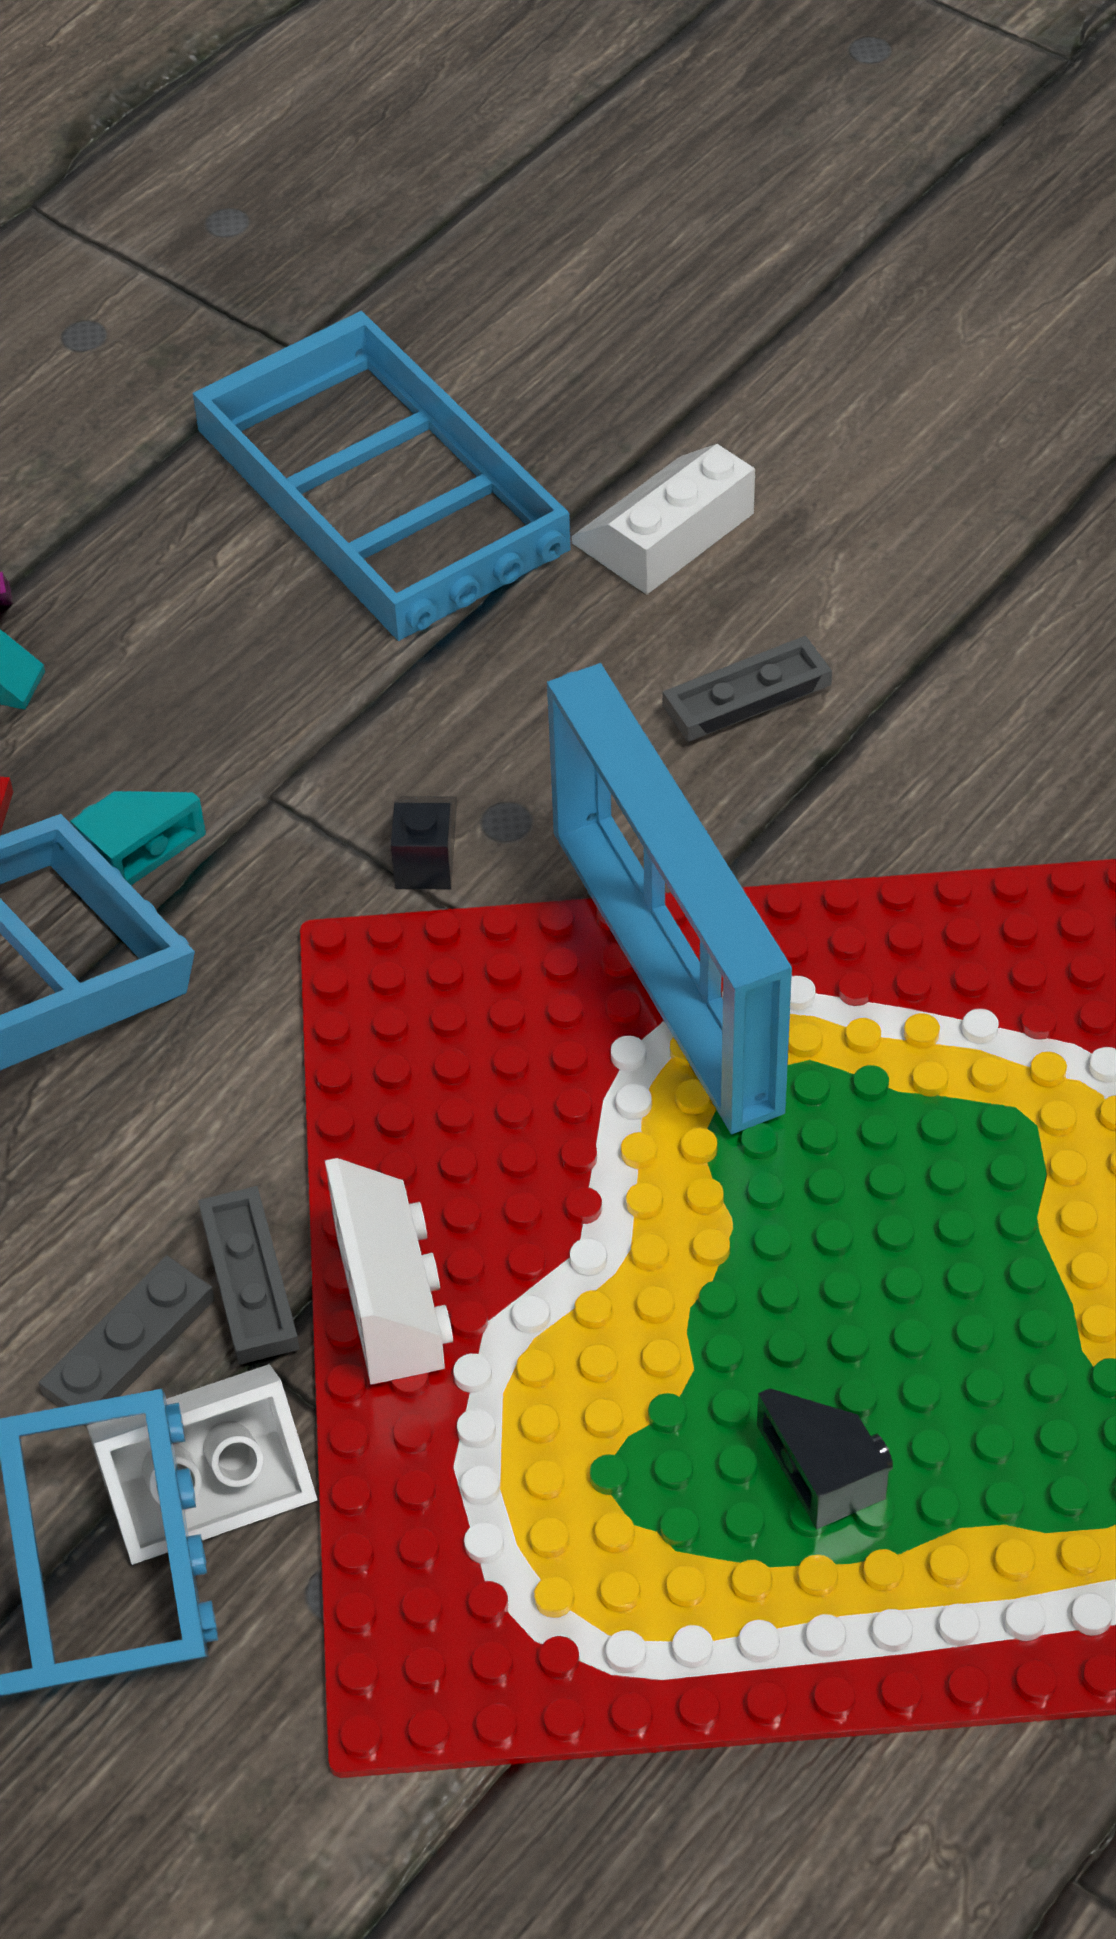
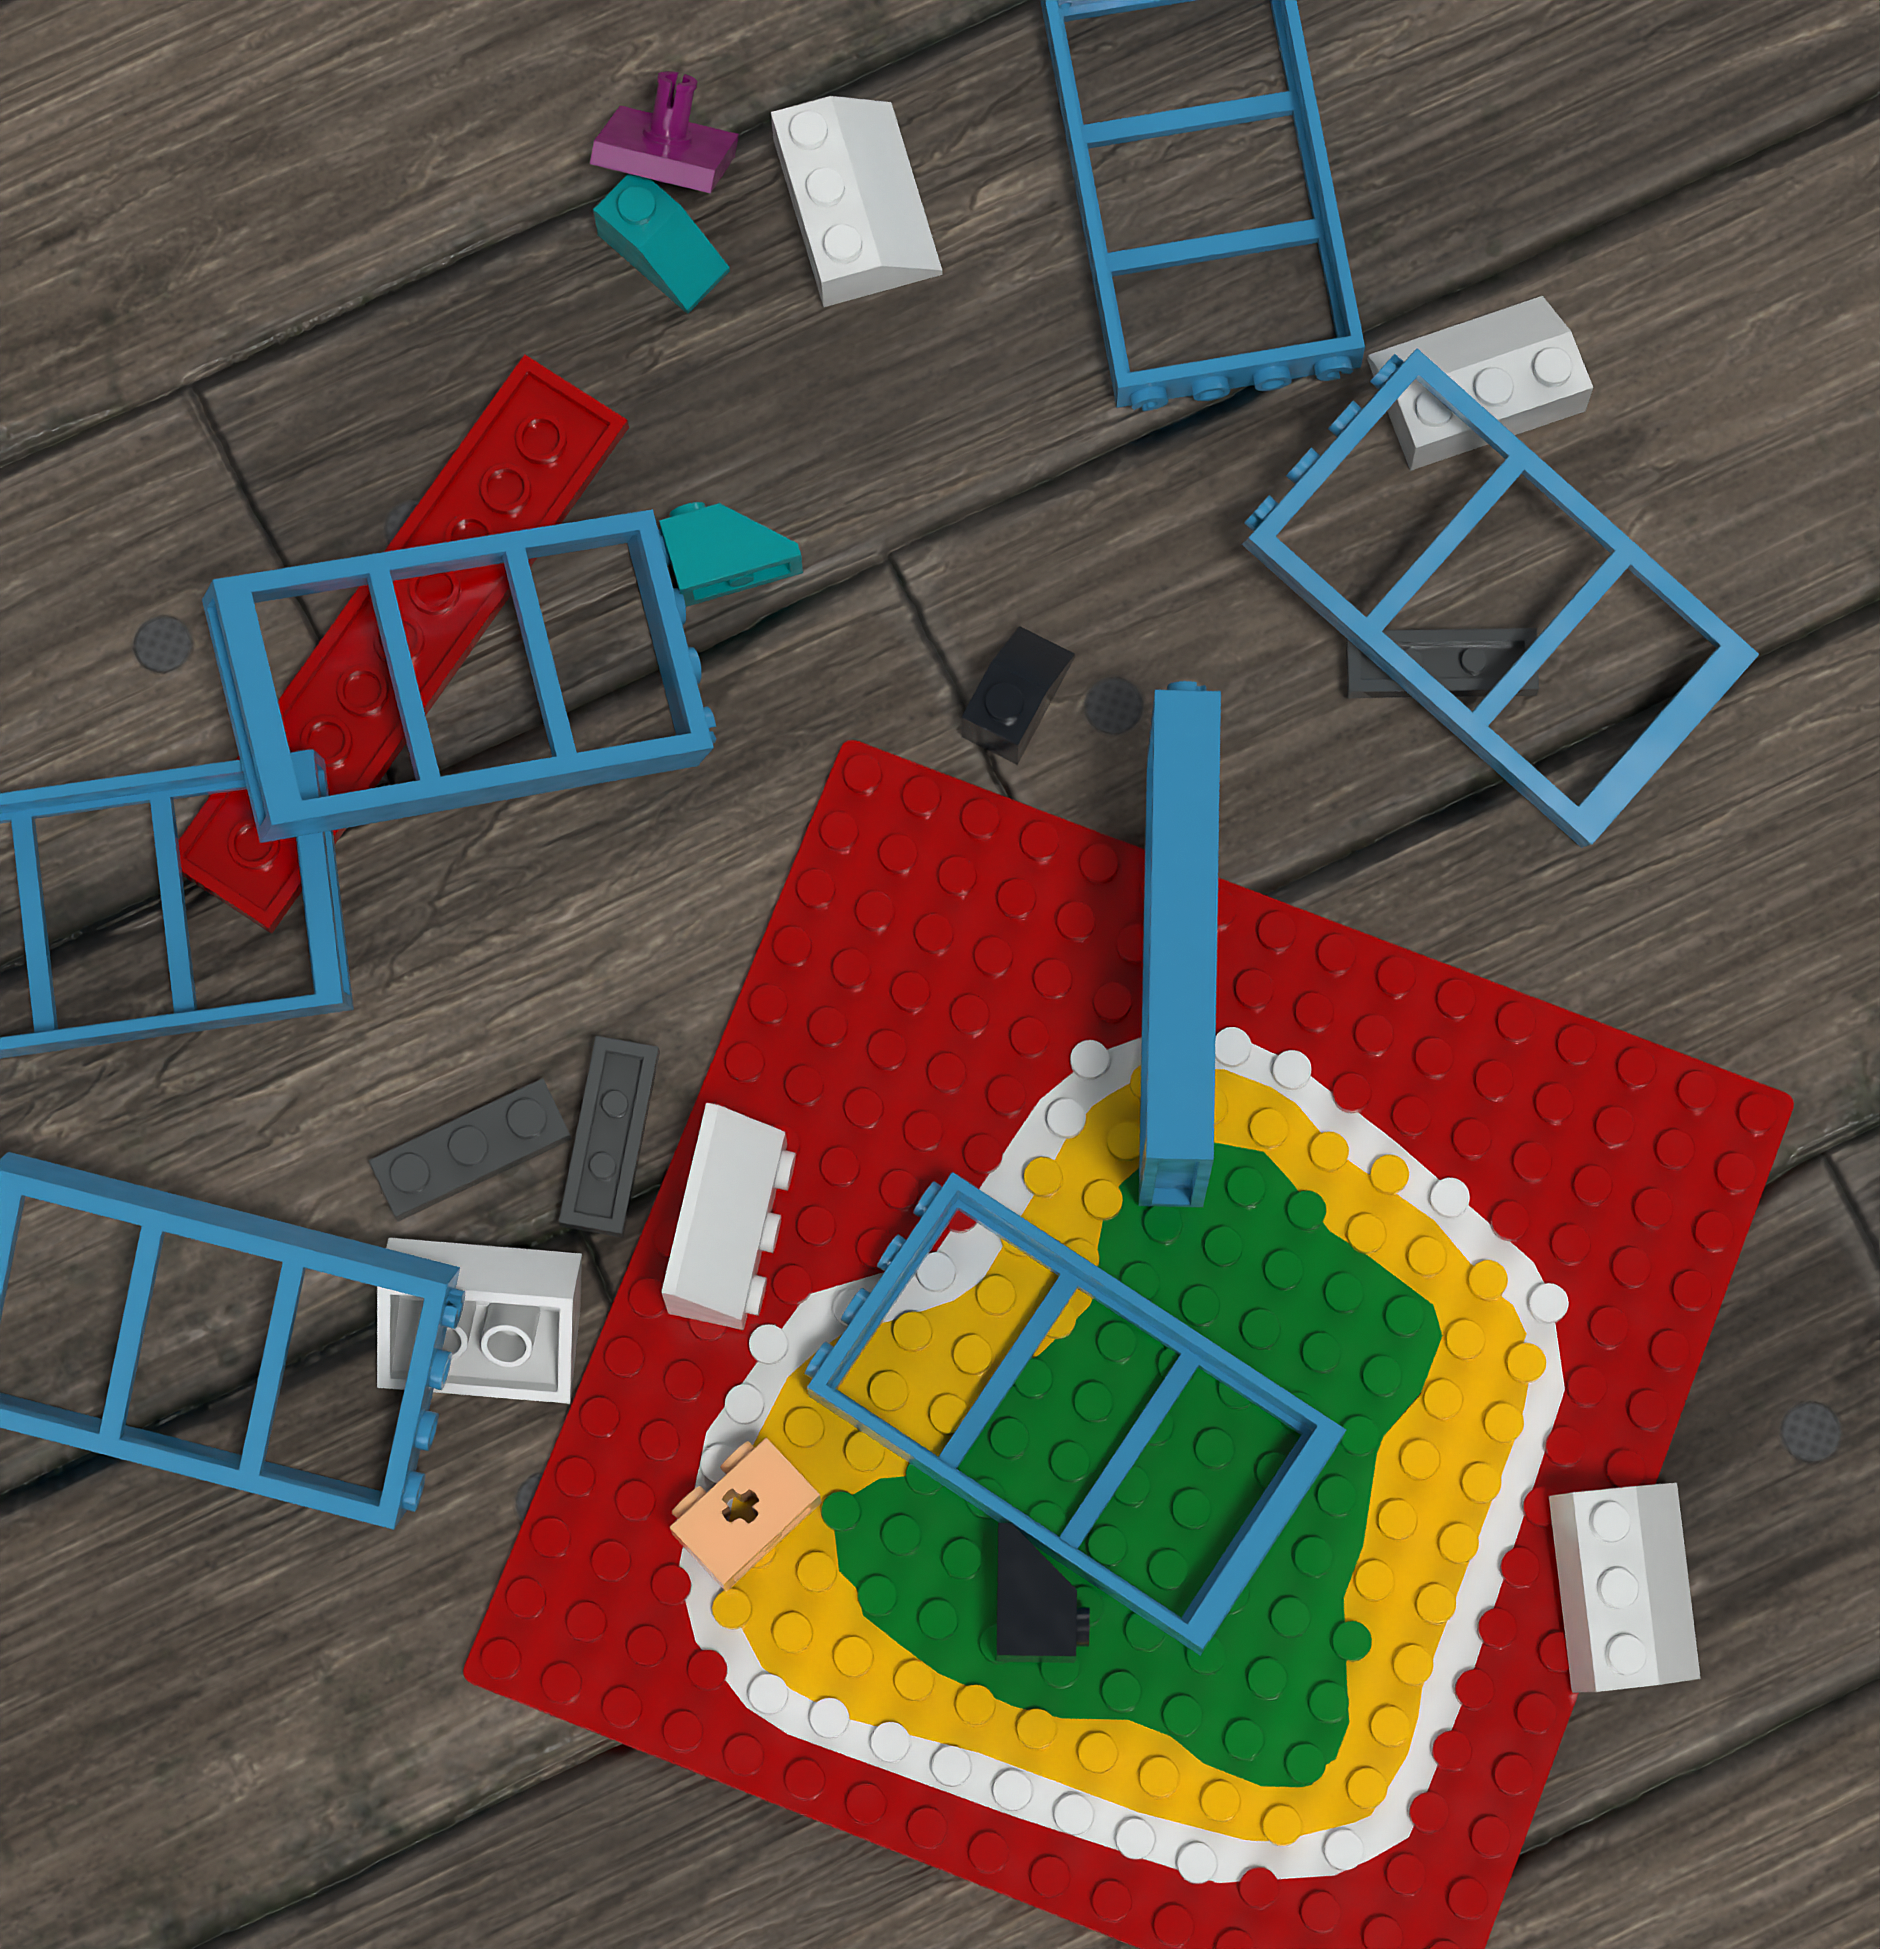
camera: 25 degrees right, 25 degrees up
(116, 585) = (854, 197): none -> white slope
(525, 1498) = (734, 1548): none -> light nougat brick
(744, 688) = (1655, 743): none -> dark azure window
(776, 1197) = (1261, 1528): none -> dark azure window

